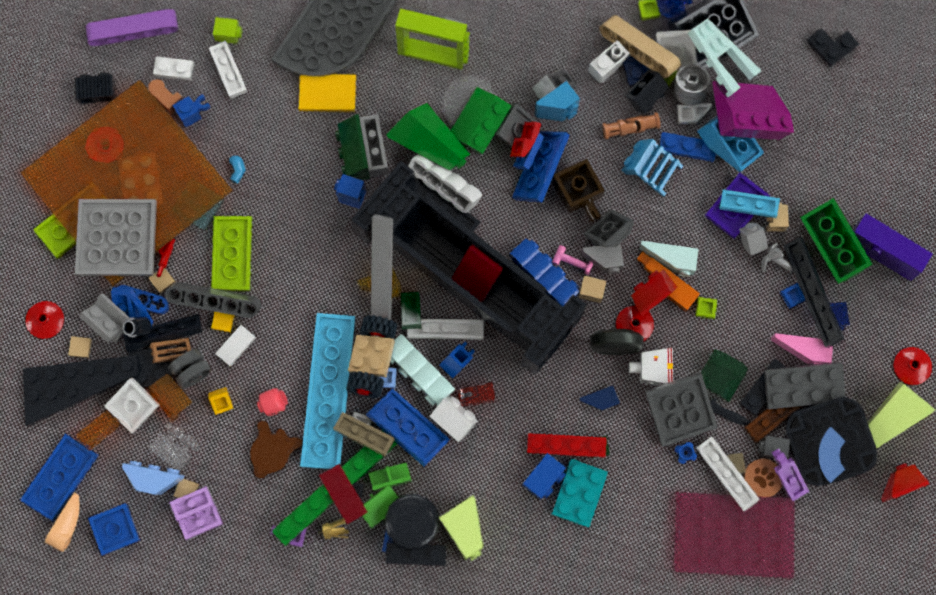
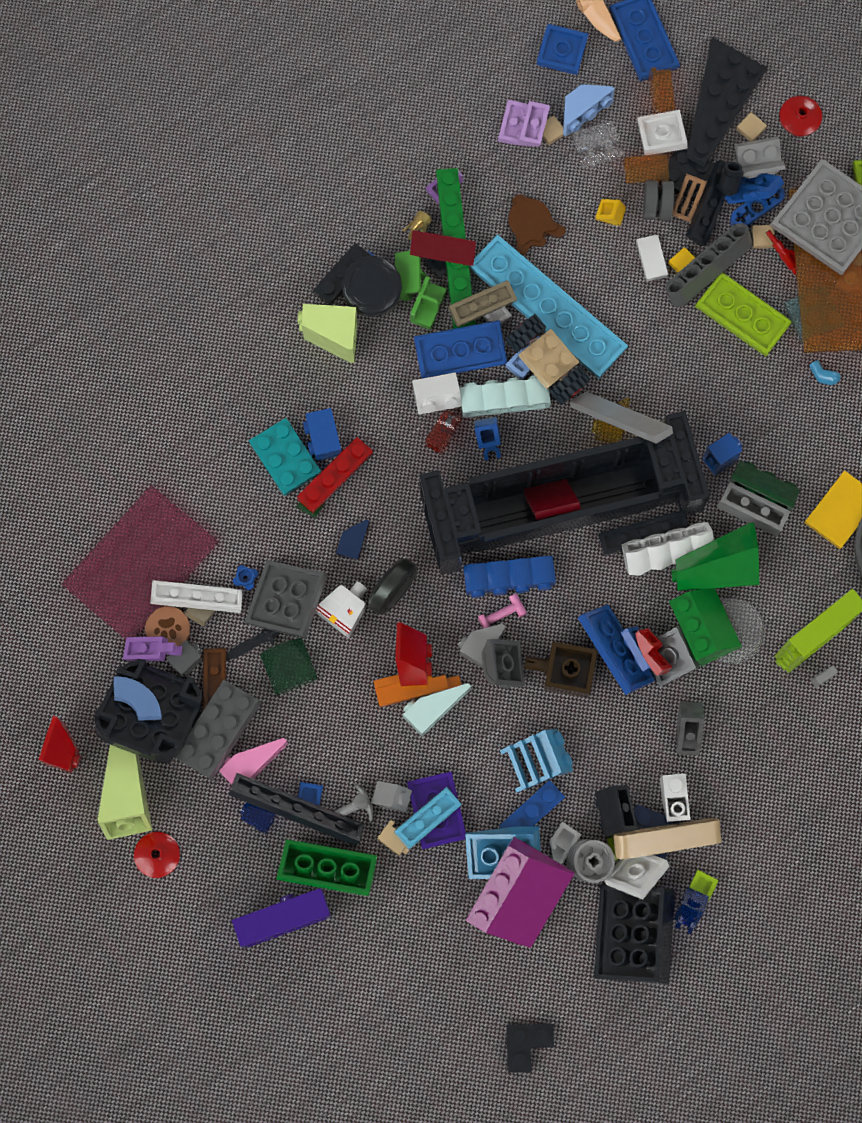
camera: 130 degrees right, 0 degrees up
(272, 402) = (574, 251): coral head -> none
(410, 310) = (567, 430): dark green tile -> none
(448, 329) = (532, 441): white tile -> none
(558, 104) = (666, 714): dark azure slope -> none
(592, 289) = (460, 608): tan panel -> none
(629, 127) = (595, 767): nougat piece -> none
(631, 313) = (385, 622): red dish -> none
(706, 308) = (362, 703): lime tile -> none
(714, 44) = (617, 904): light aqua wing -> none
(756, 396) = (243, 678): black plate -> none

